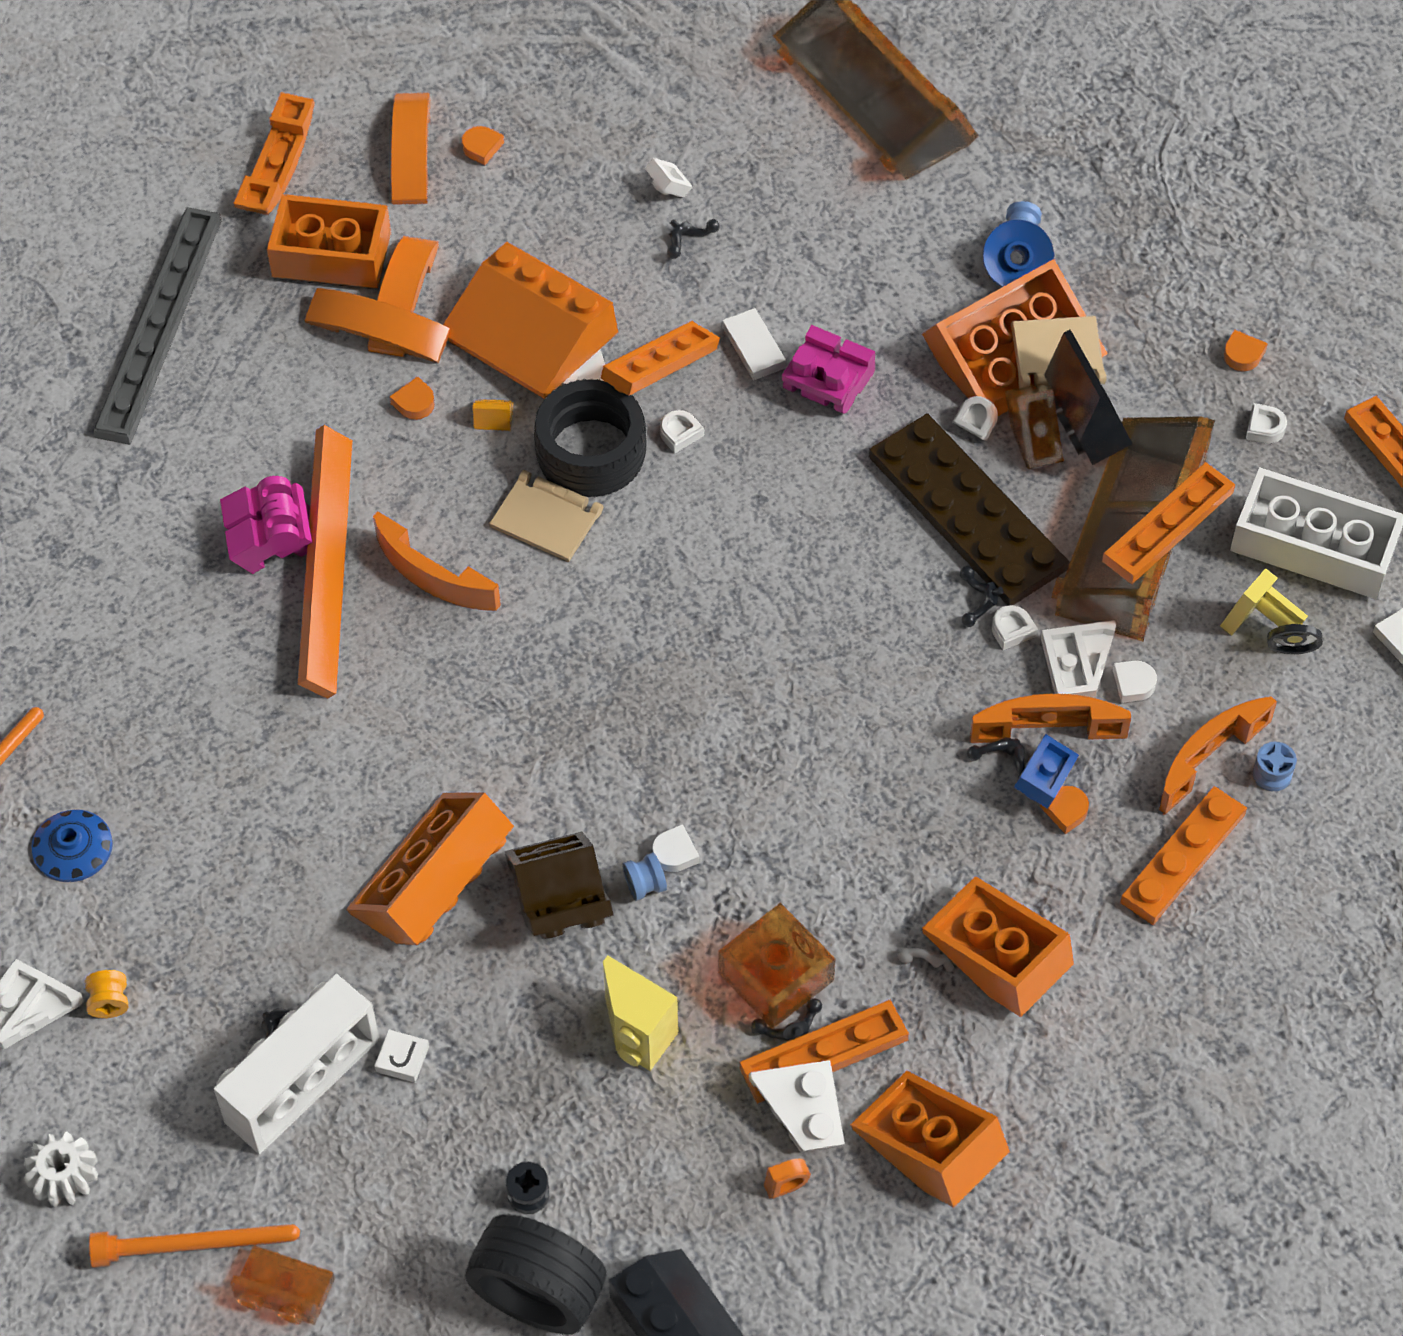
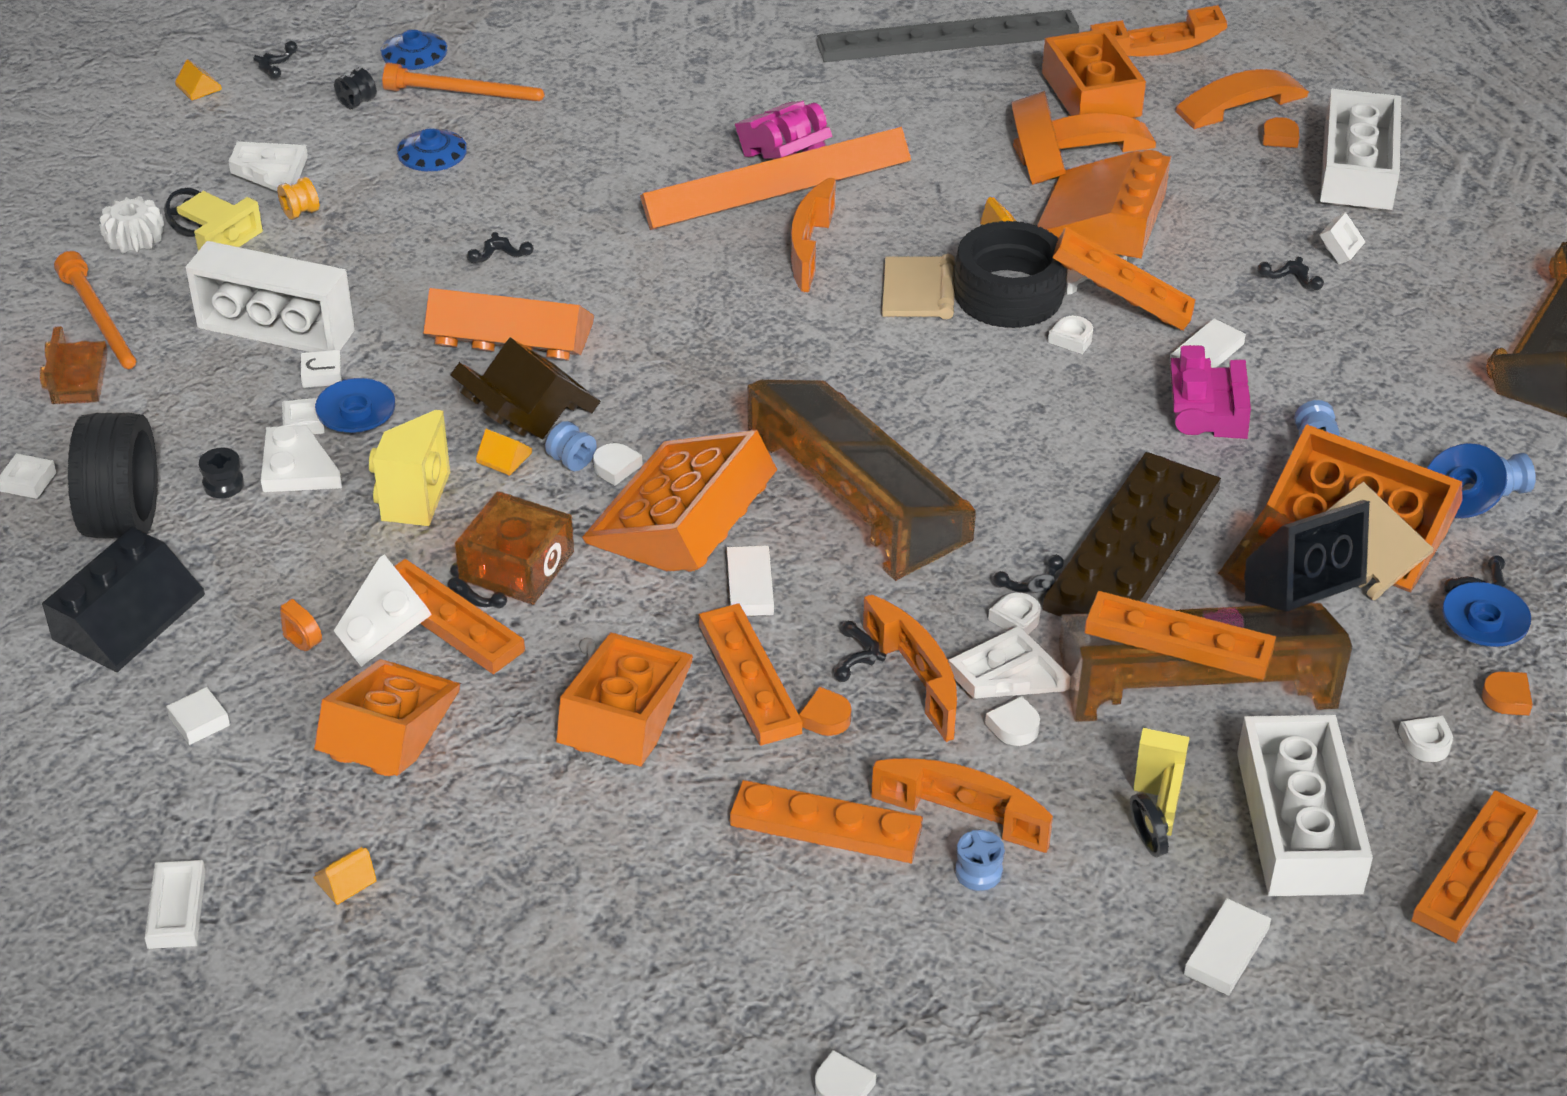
camera: 65 degrees right, 15 degrees down
(97, 1086) = (217, 219): none -> light yellow piece
(296, 862) = (497, 243): none -> black piece
(414, 399) = (980, 179): orange tile -> none
(468, 1094) = (302, 413): none -> white tile
(487, 1023) = (355, 405): none -> blue dish
(533, 1118) = (296, 461): none -> white wing
(561, 100) = (1361, 149): none -> white brick
(615, 936) = (501, 452): none -> light orange slope
(761, 815) = (684, 500): none -> orange slope
(802, 661) = (865, 468): none -> clear orange windscreen
(853, 1296) = (198, 715): none -> white tile
(883, 802) = (750, 579): none -> white tile
(900, 317) = (1316, 414): none -> medium blue wheel
(977, 416) = (1242, 512): white tile -> none
(1001, 844) = (750, 674): none -> orange plate
(1046, 771) = (850, 674): blue plate -> none
(1096, 1228) = (346, 875): none -> light orange slope
(1132, 302) = (1496, 565): none -> black piece
(1169, 310) = (1486, 614): none -> blue dish

